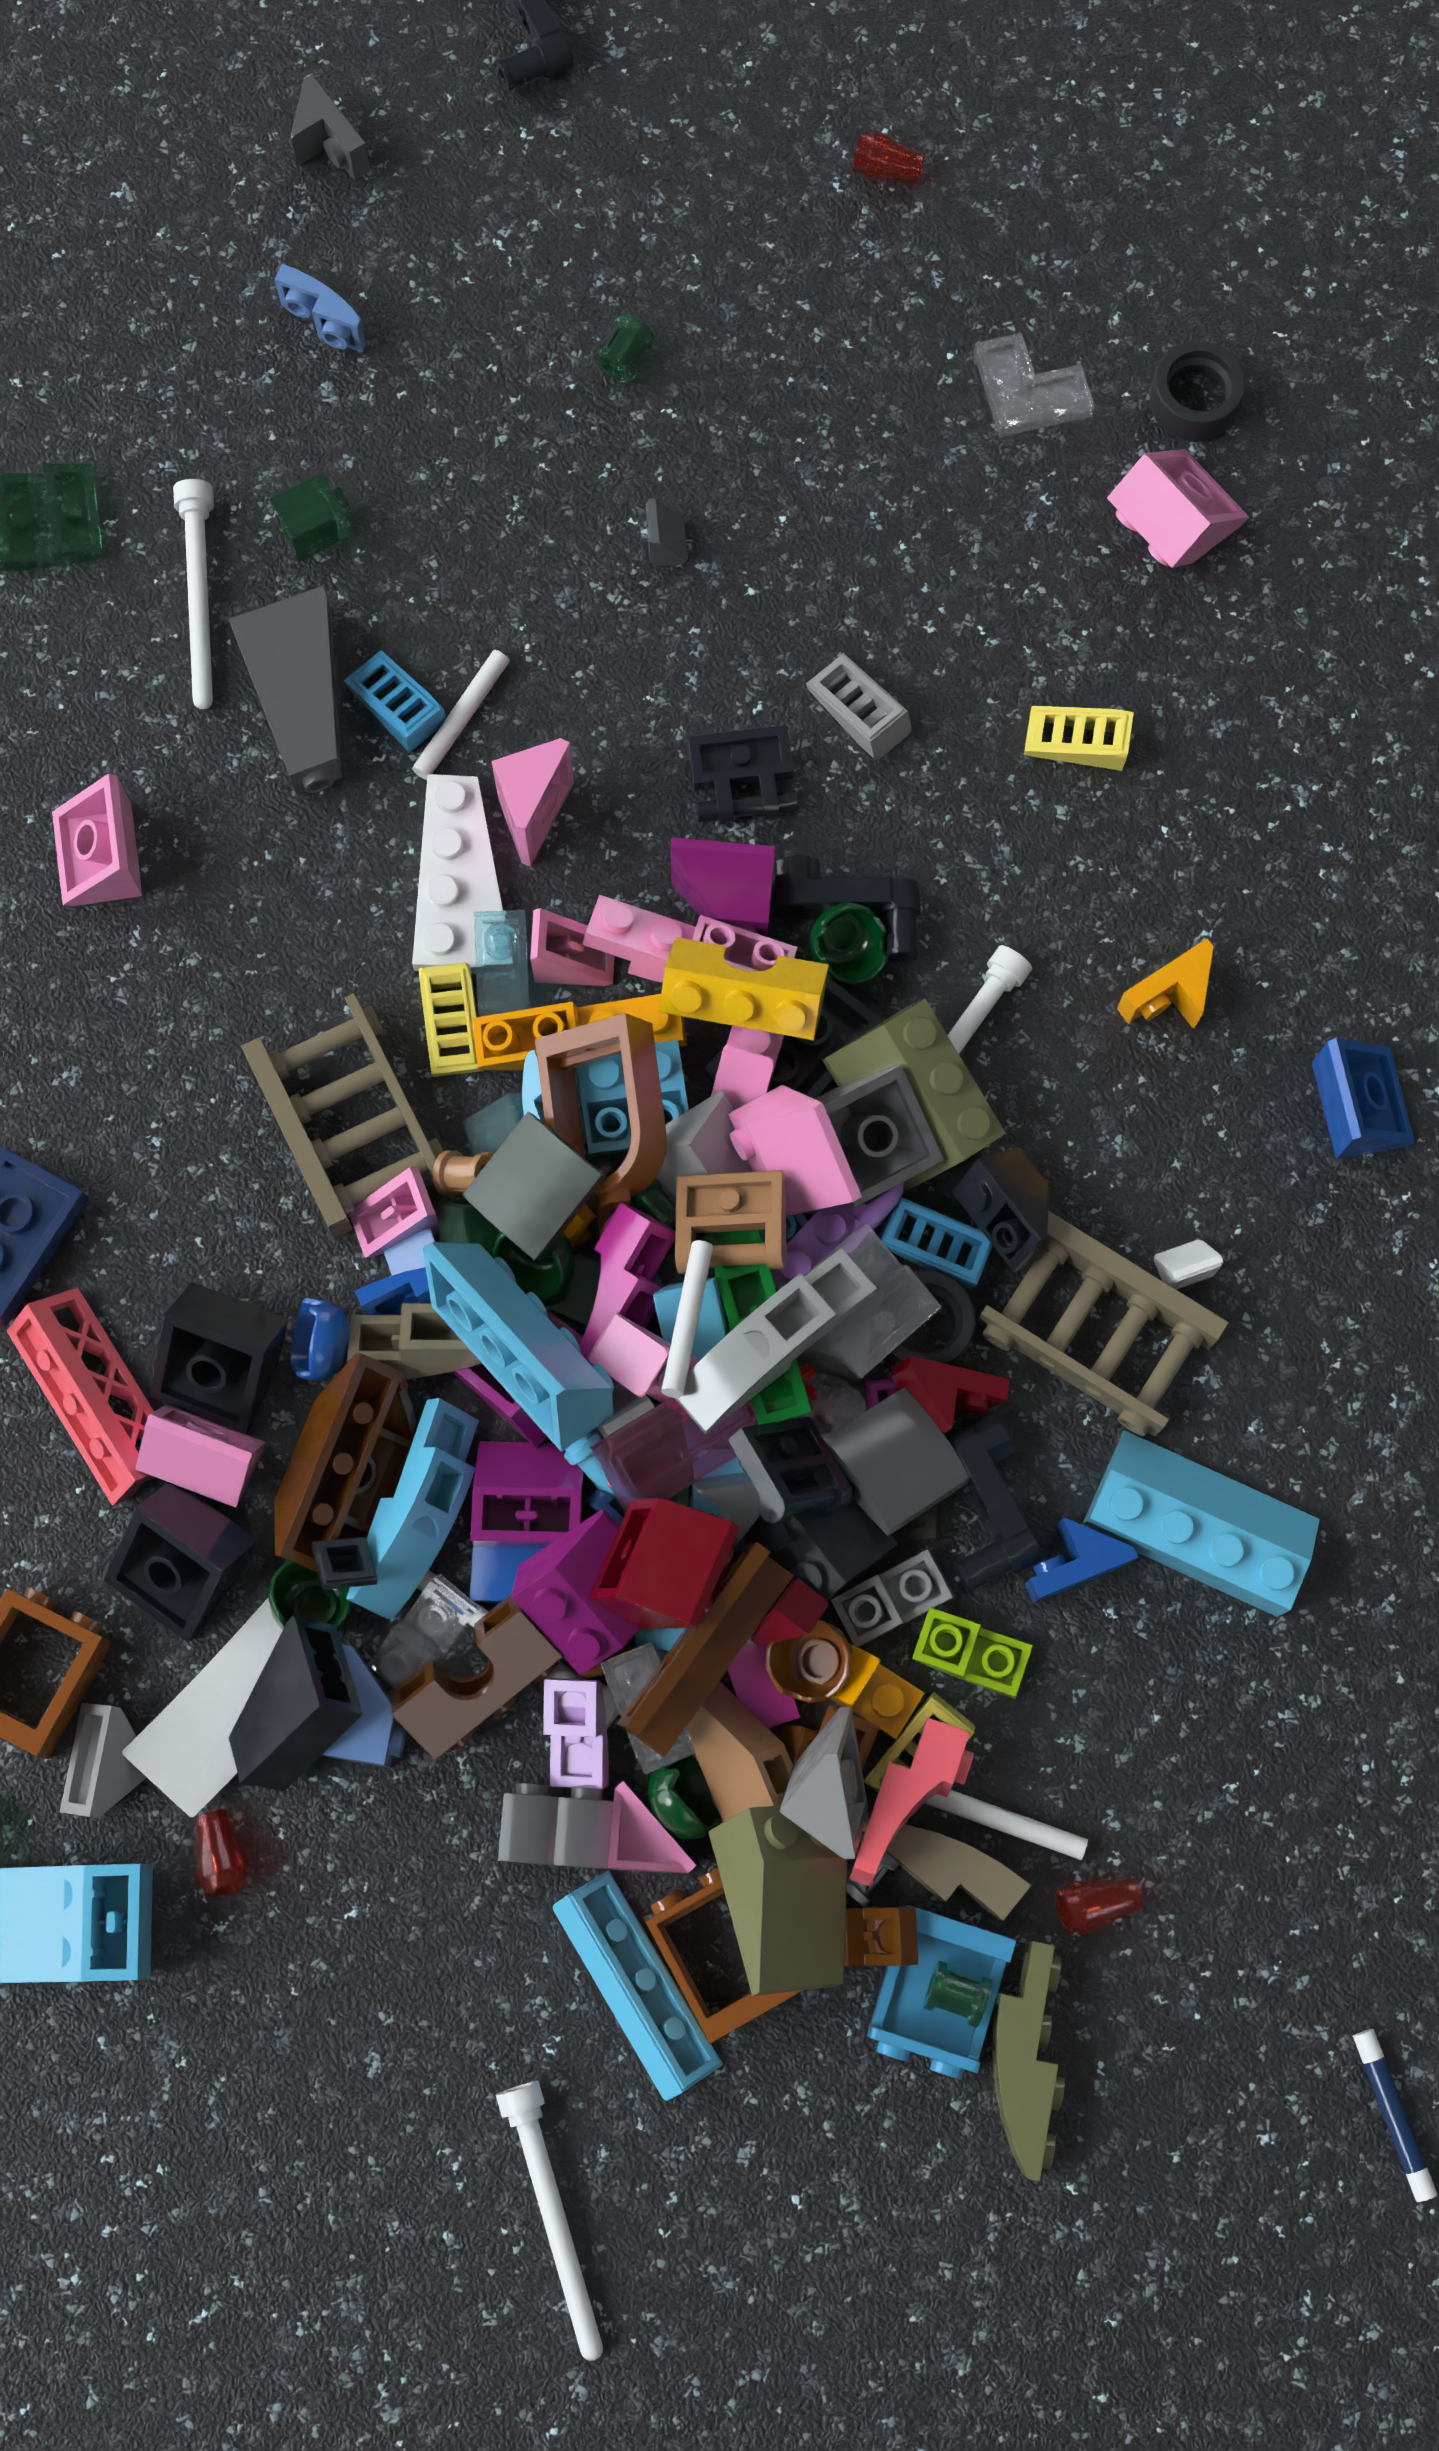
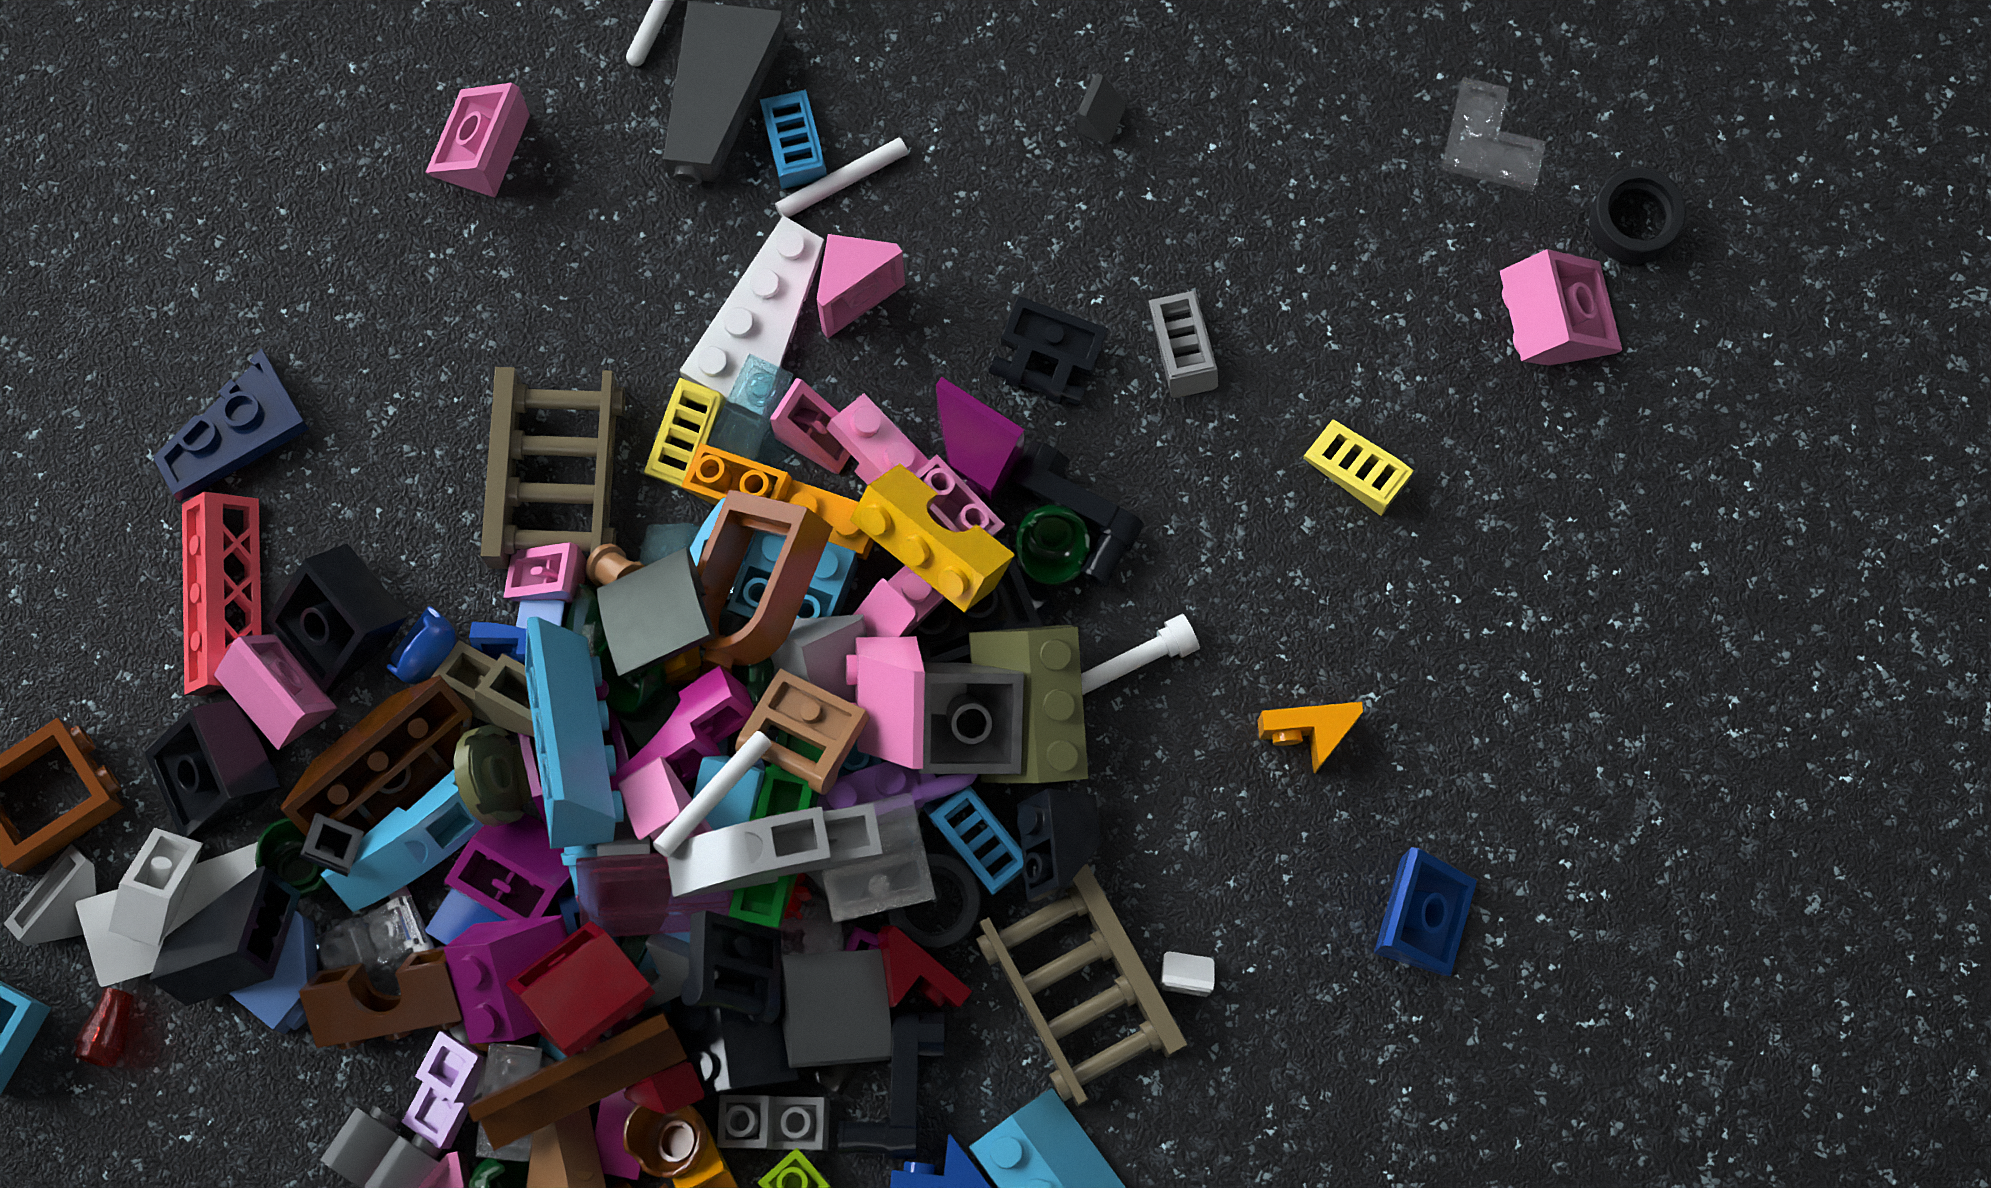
camera: 30 degrees right, 0 degrees up
(192, 1697) = (154, 887): none -> white slope
(458, 1419) = (491, 776): none -> olive tile

